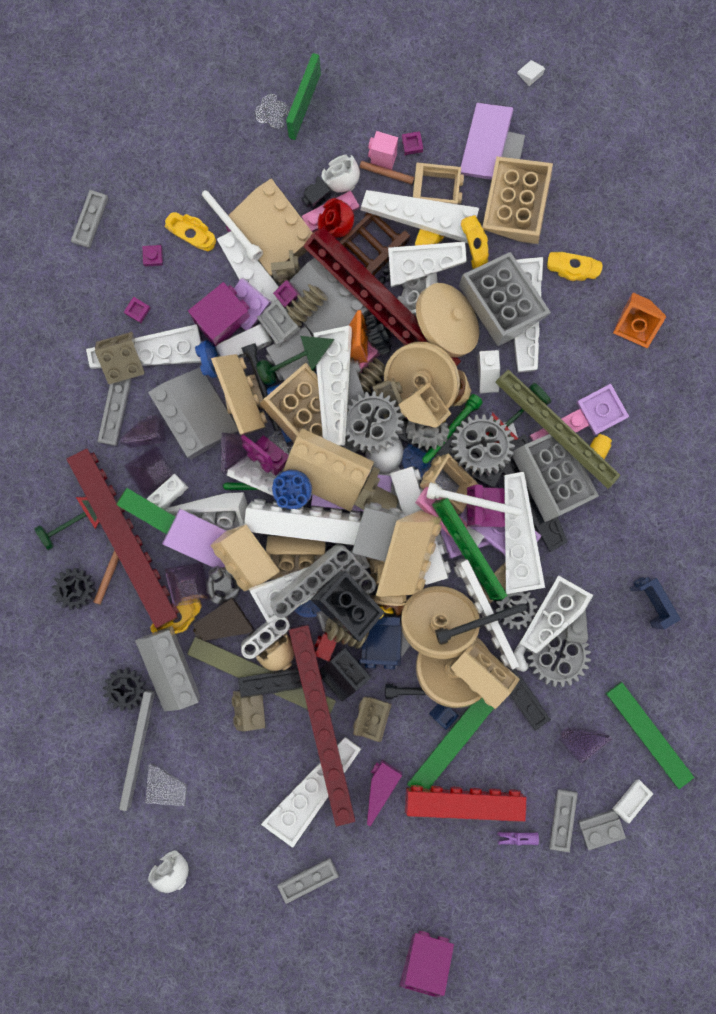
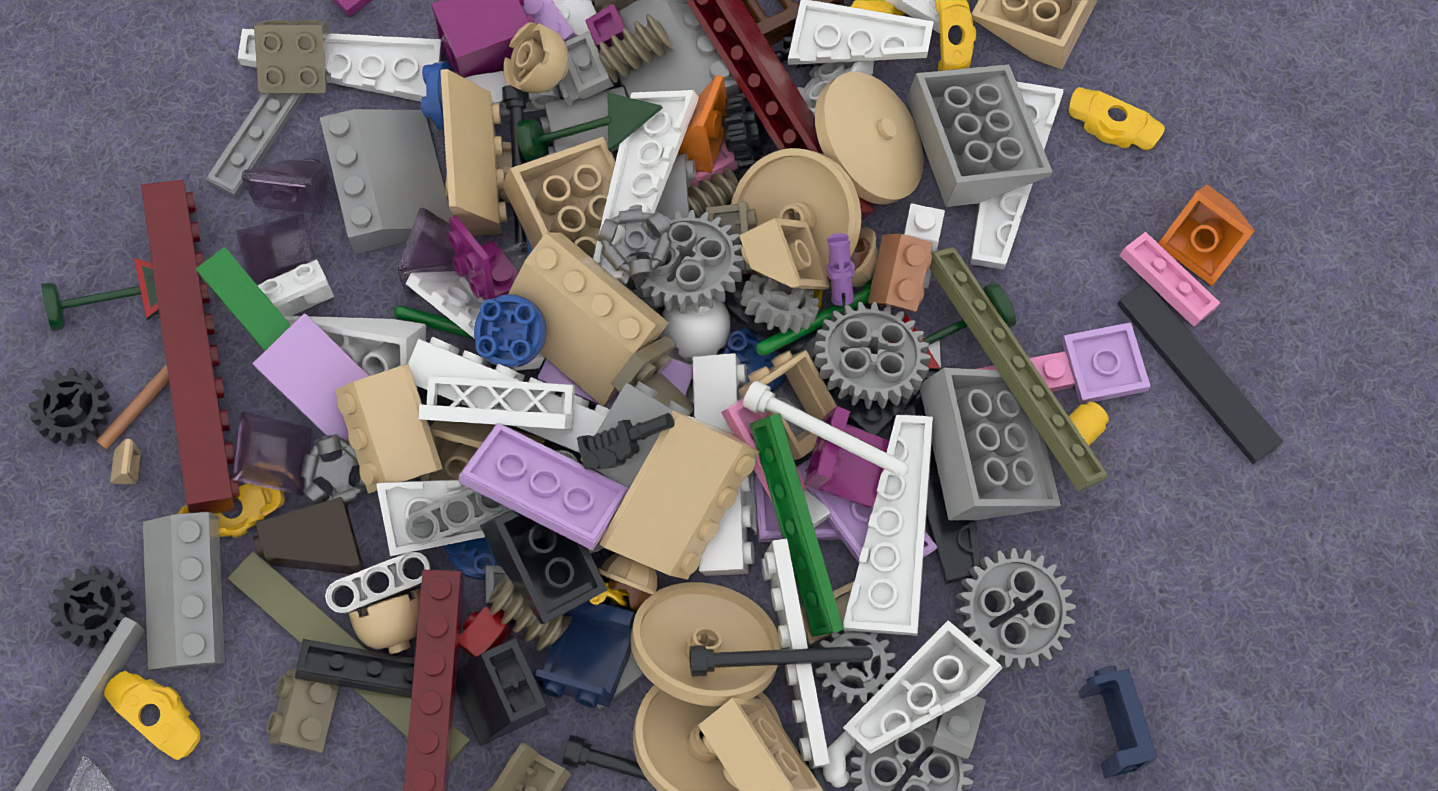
camera: 10 degrees right, 15 degrees down
(113, 609) = (126, 463): none -> tan slope
(188, 738) = (173, 732): none -> yellow piece
(256, 328) = (537, 59): none -> tan cylinder
(299, 540) = (489, 414): none -> white fence
(339, 573) = (544, 485): none -> lavender tile
(344, 422) = (636, 242): none -> flat silver piece
(372, 542) = (619, 443): none -> black piece
(455, 404) = (840, 268): none -> medium lavender pin
(485, 394) = (900, 272): none -> nougat brick
(600, 568) = (998, 580): none -> light grey gear
(625, 352) = (1169, 279): none -> bright pink plate
(651, 399) = (1200, 373): none -> black tile

